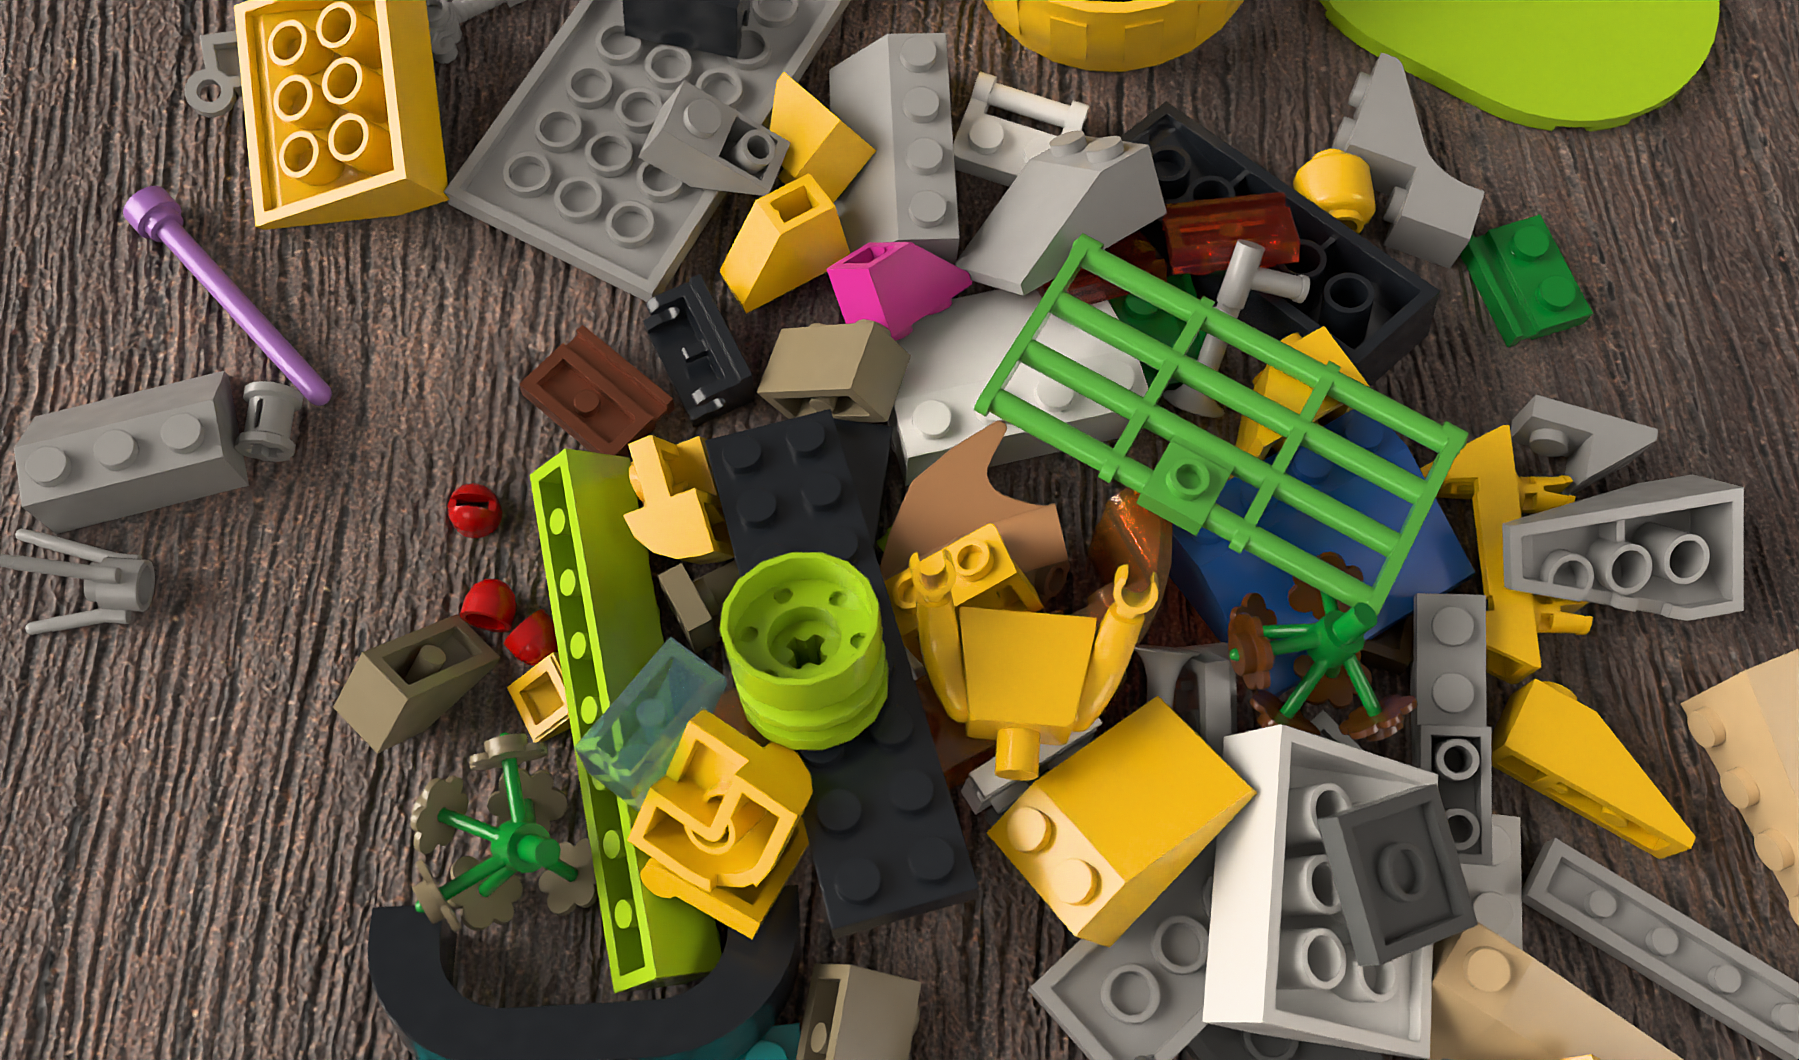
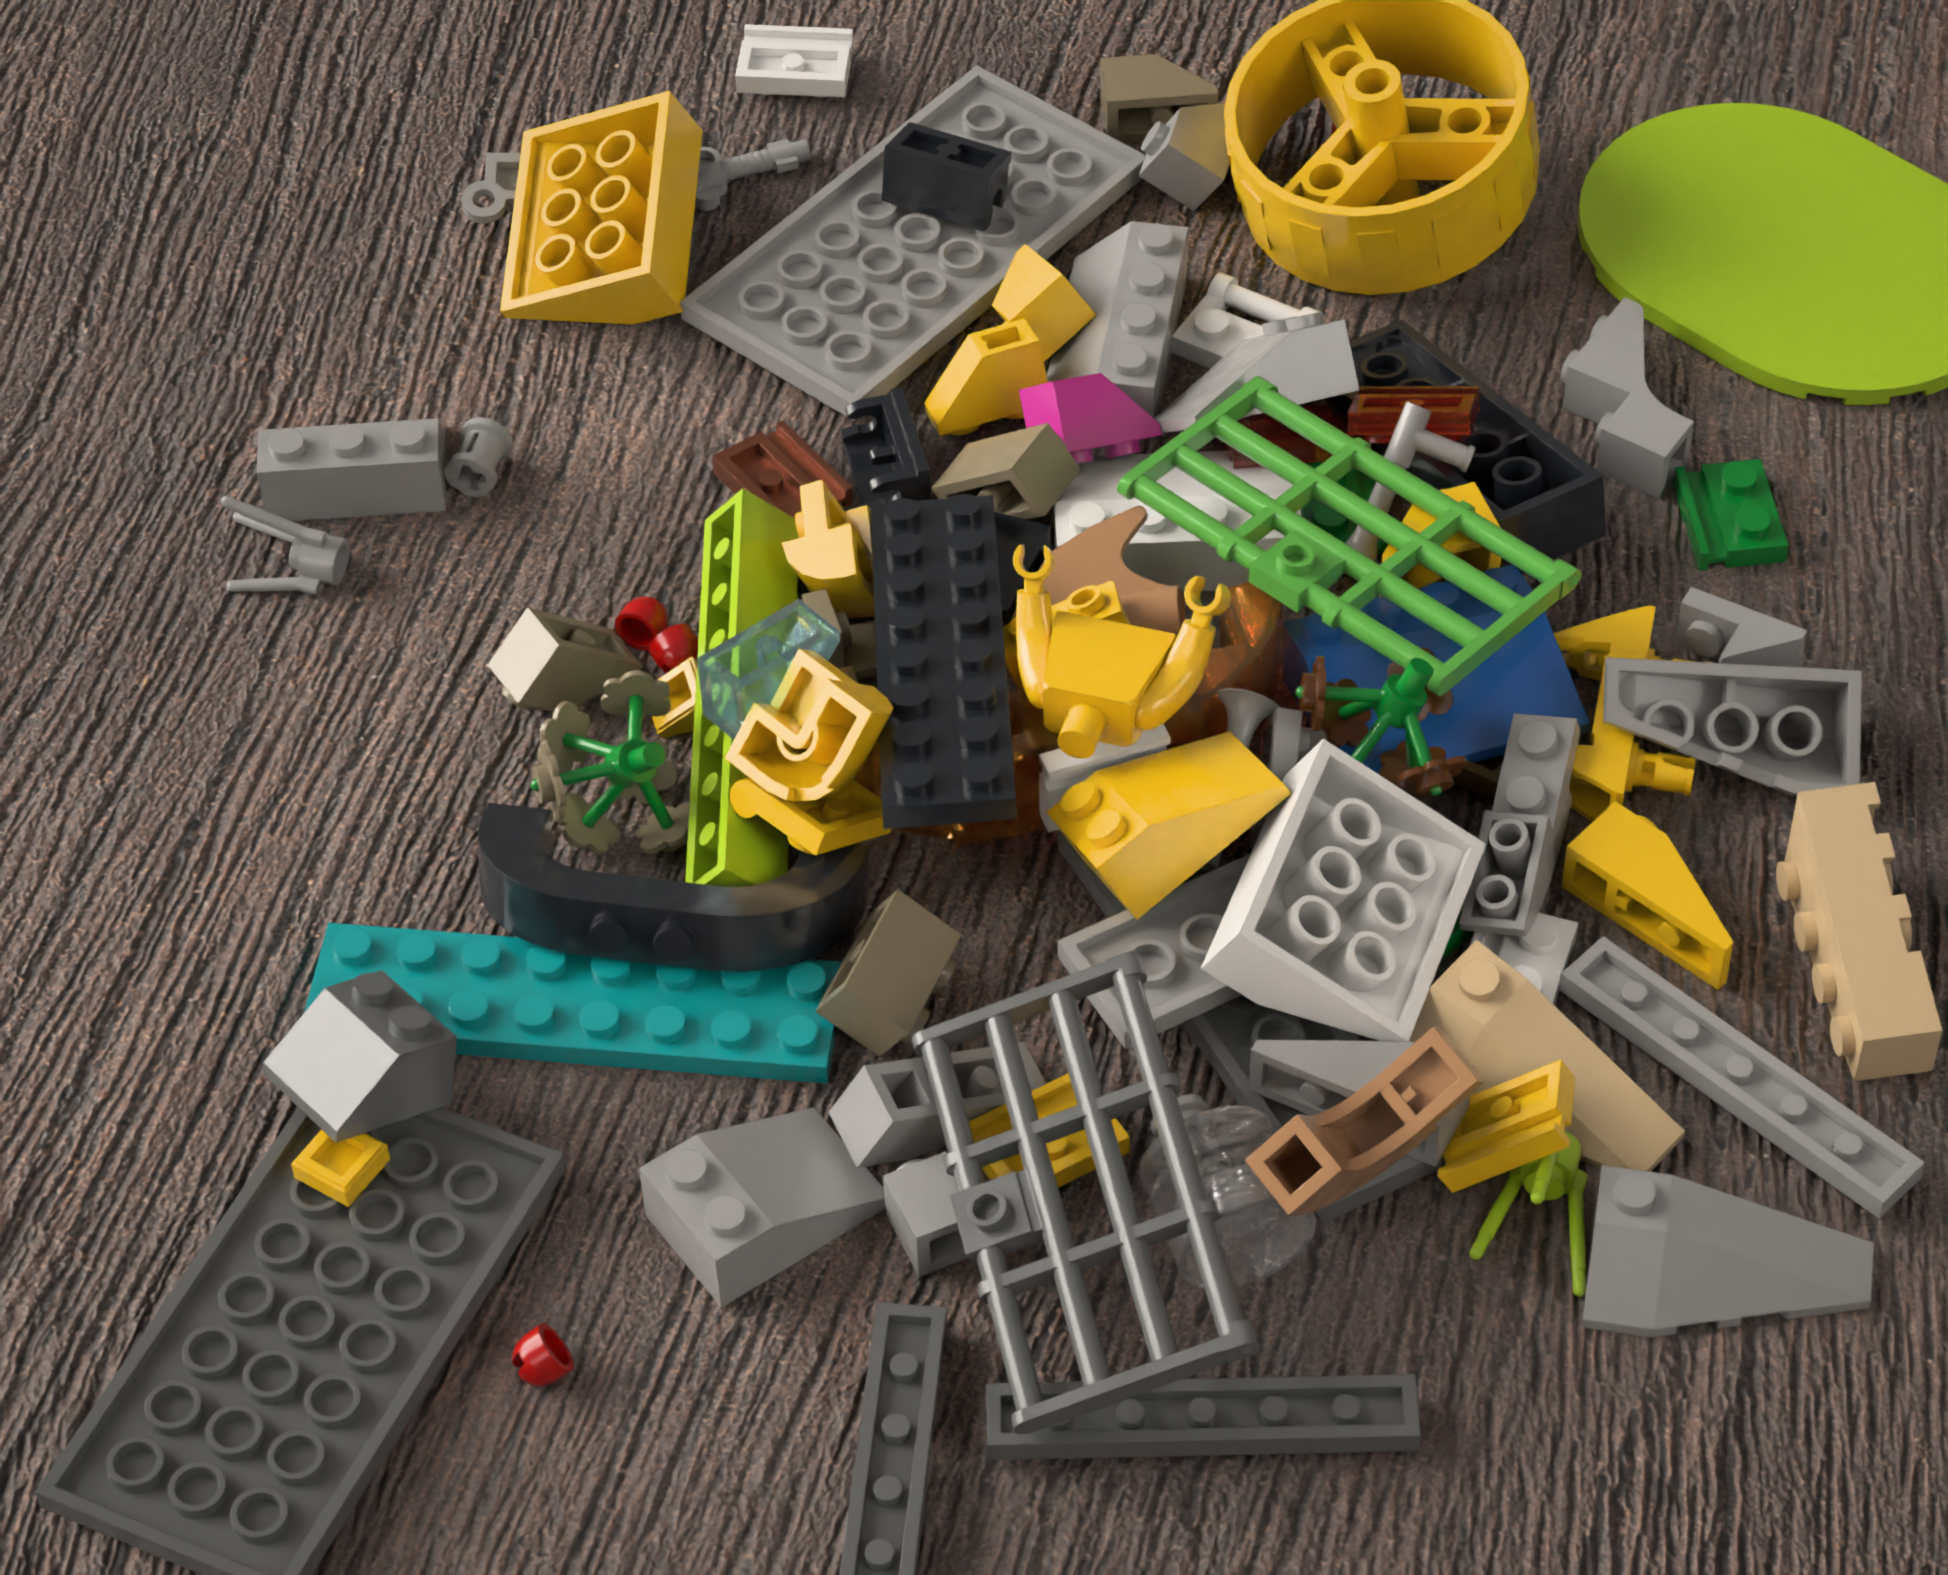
camera: 20 degrees right, 20 degrees down
(159, 218) = (414, 293): medium lavender piece -> none
(474, 520) = (647, 553): red hinge -> none
(713, 145) = (938, 285): light grey slope -> none
(806, 650) = (911, 607): lime wheel -> none
(1339, 186) = (1552, 402): yellow head -> none
(1397, 874) = (1405, 874): dark grey plate -> none

